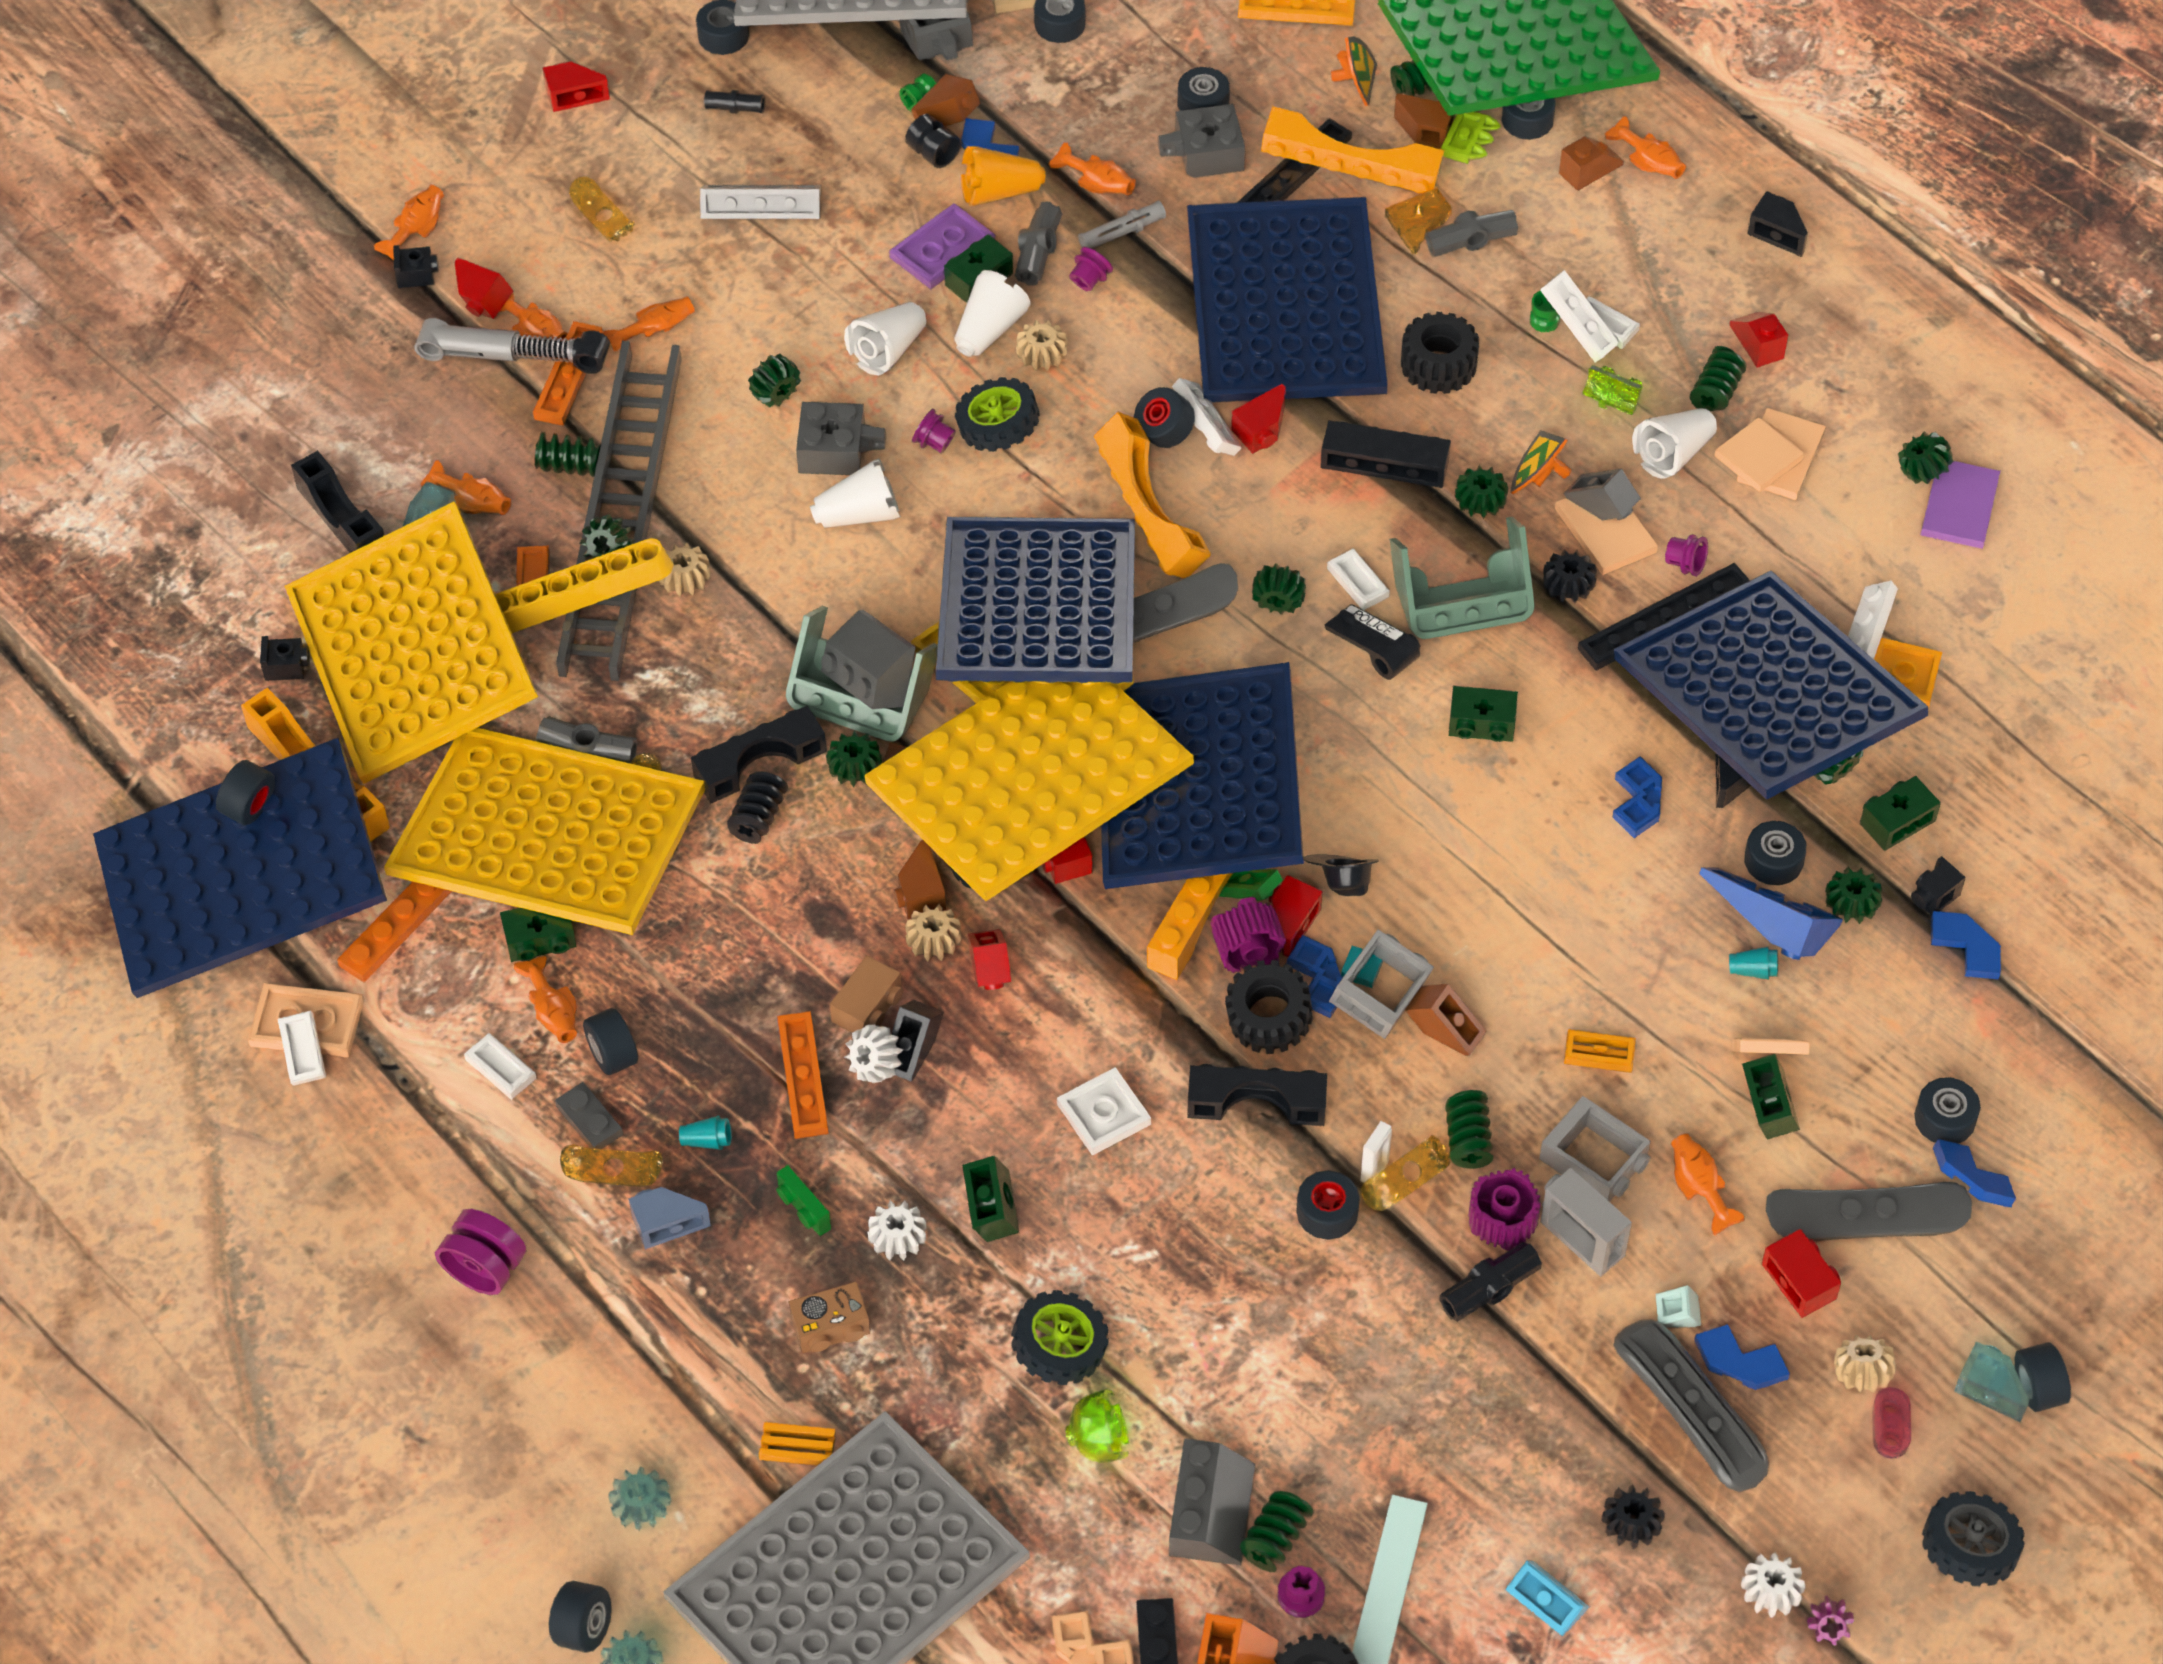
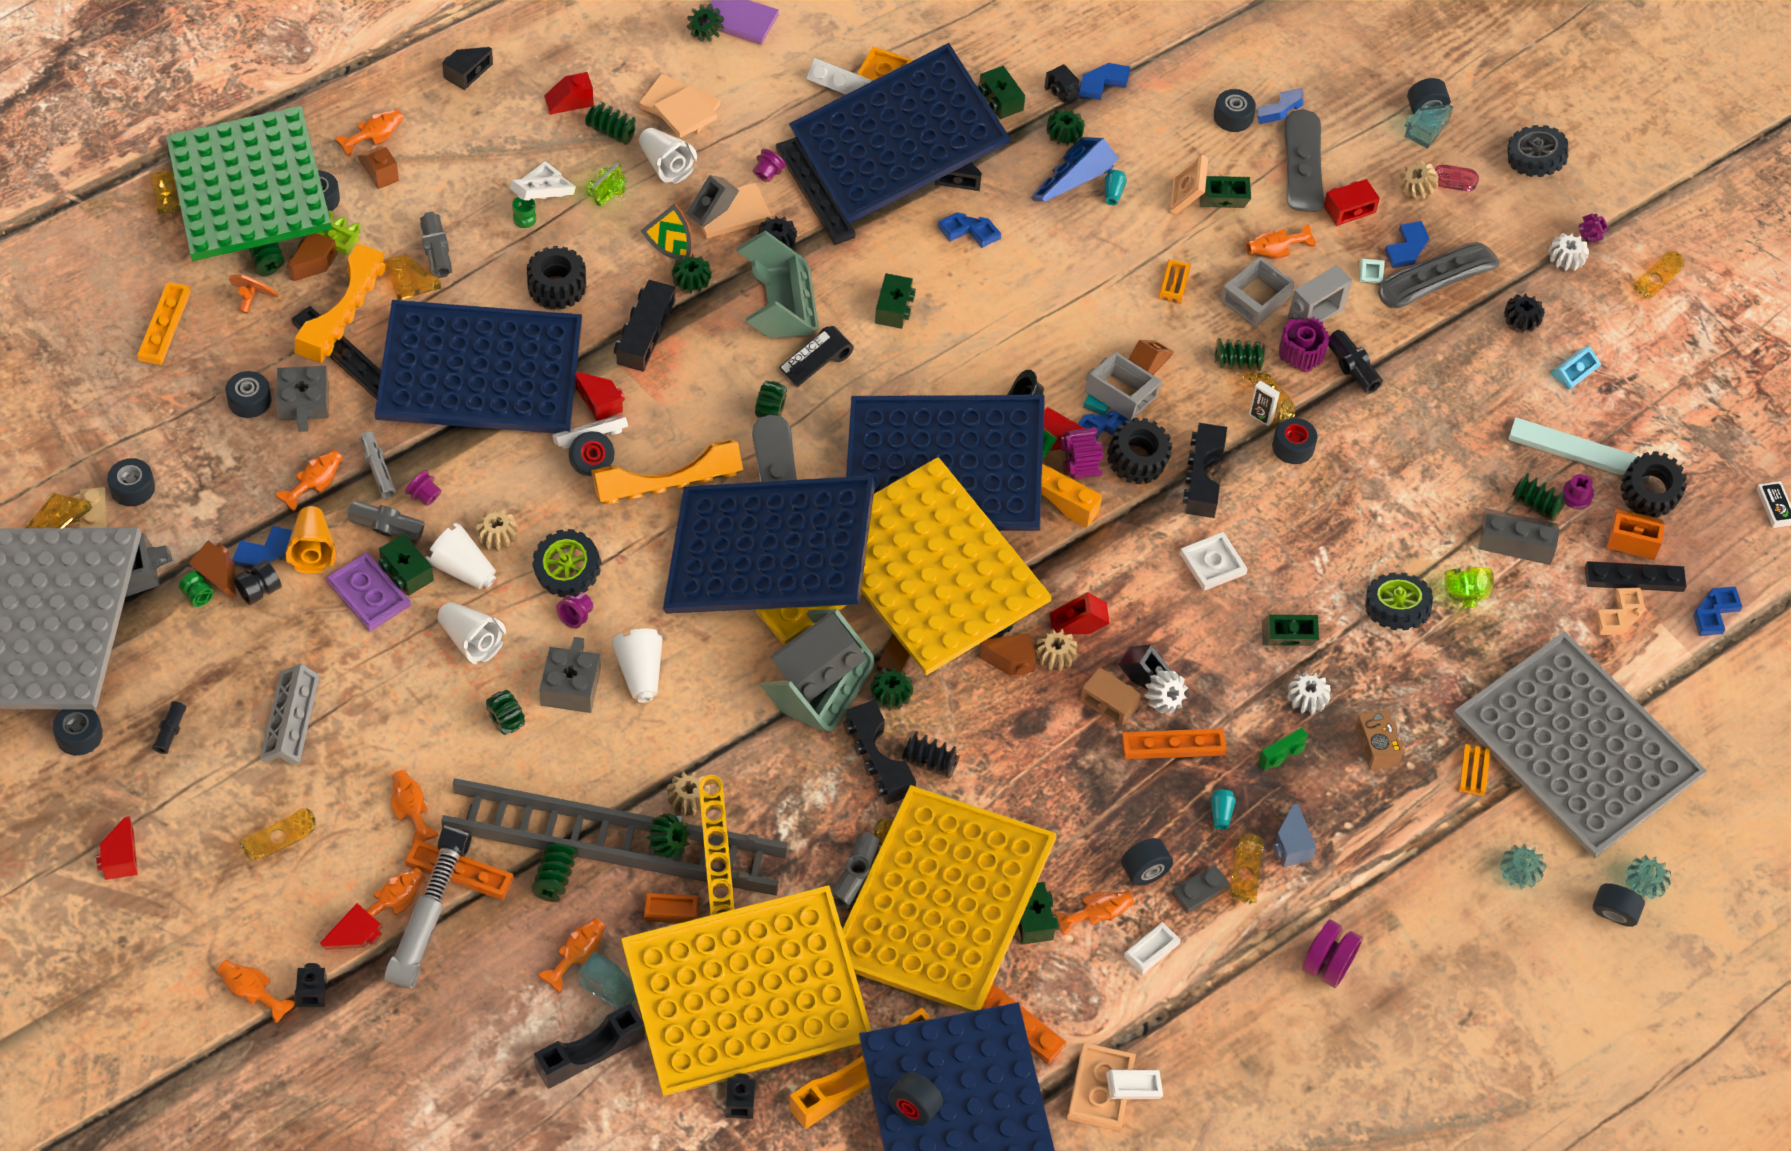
camera: 90 degrees left, 0 degrees up
(1358, 579) = (756, 360): white tile -> none
(1775, 852) = (1028, 161): black wheel -> none

